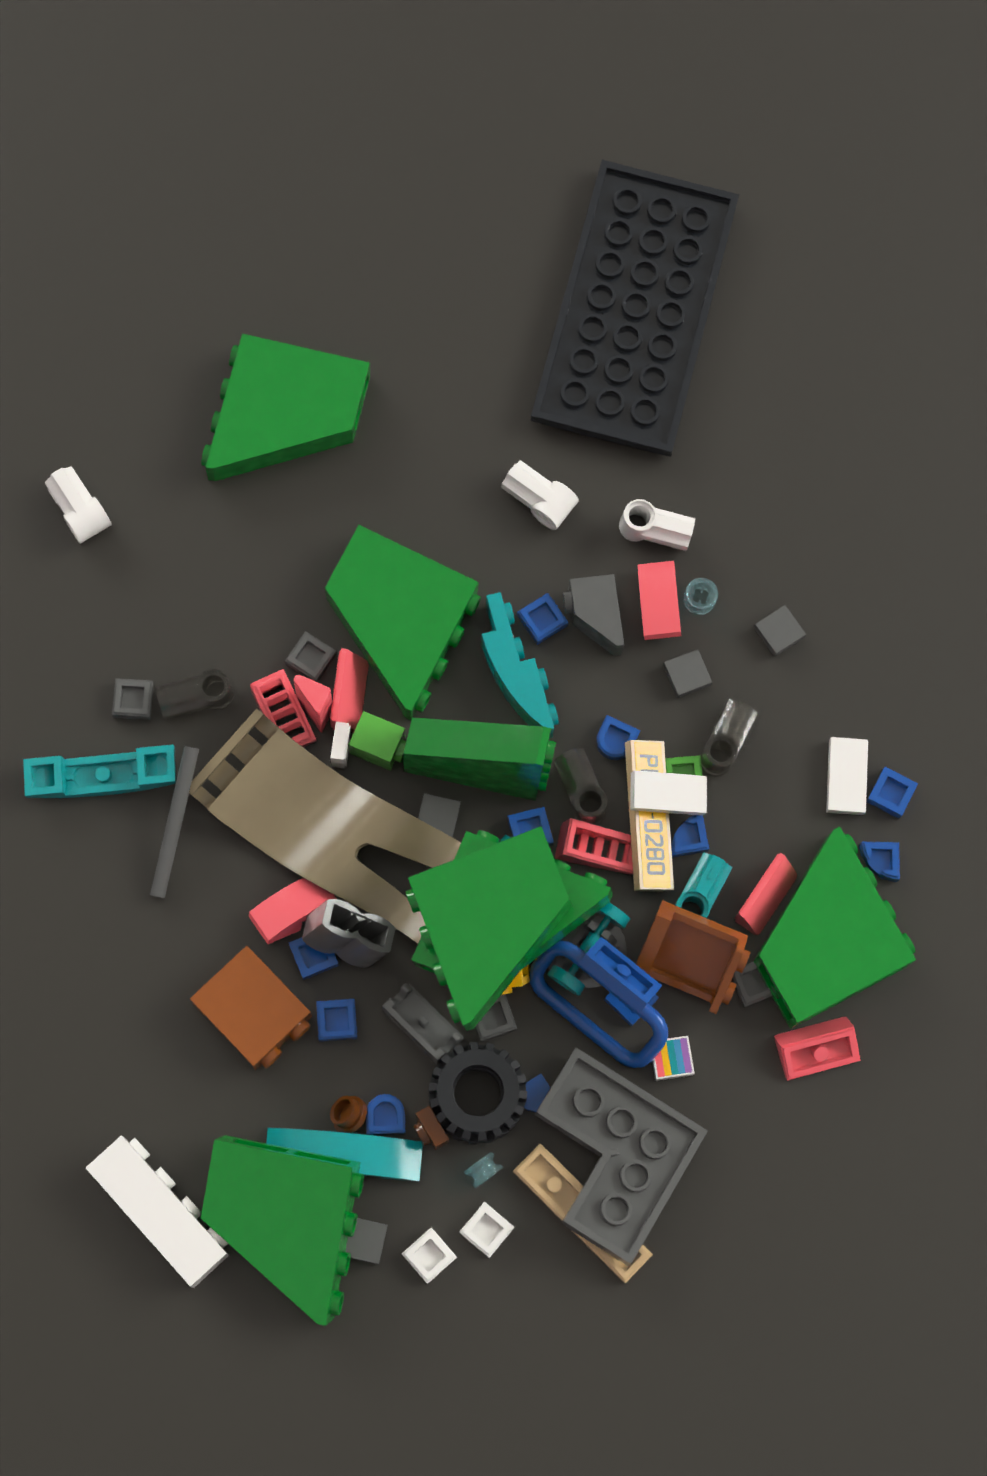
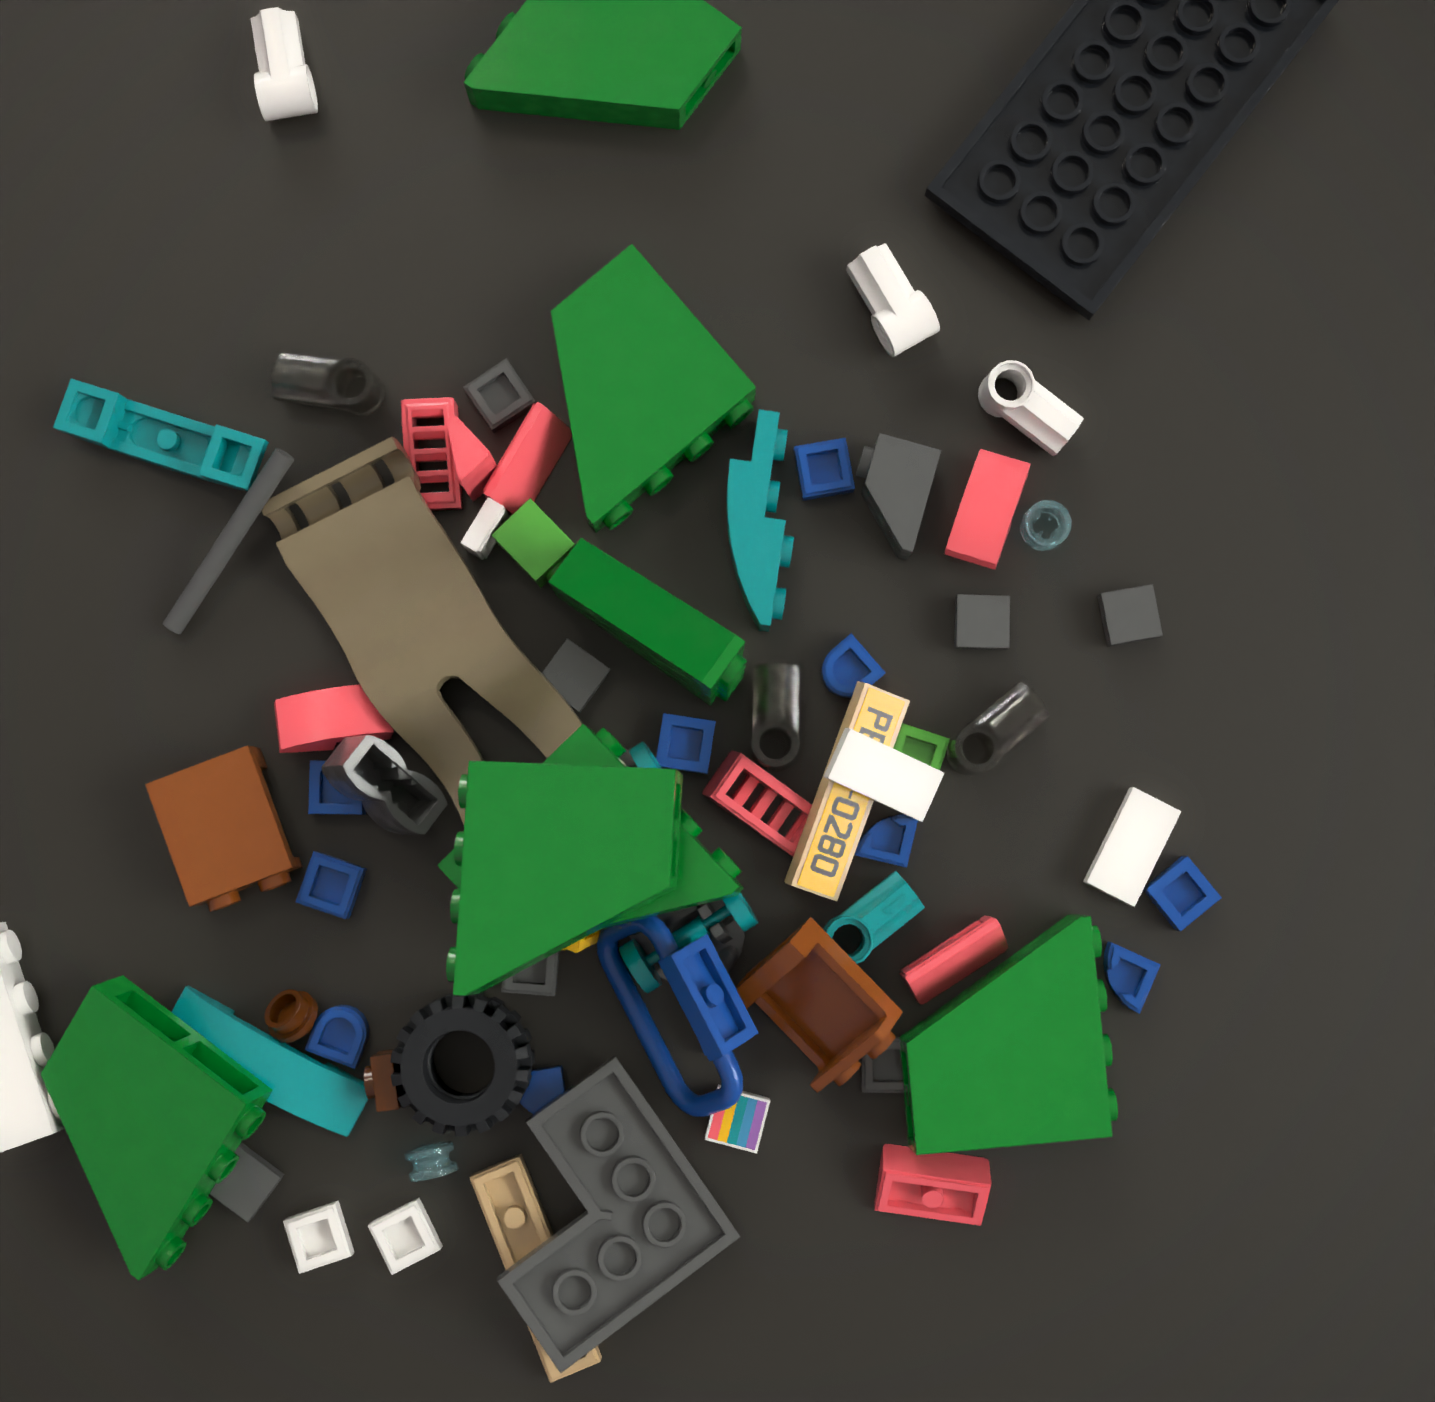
camera: 25 degrees right, 10 degrees up
(133, 699) = (248, 356): dark grey tile -> none
(422, 1023) = (426, 933): dark grey hinge -> none

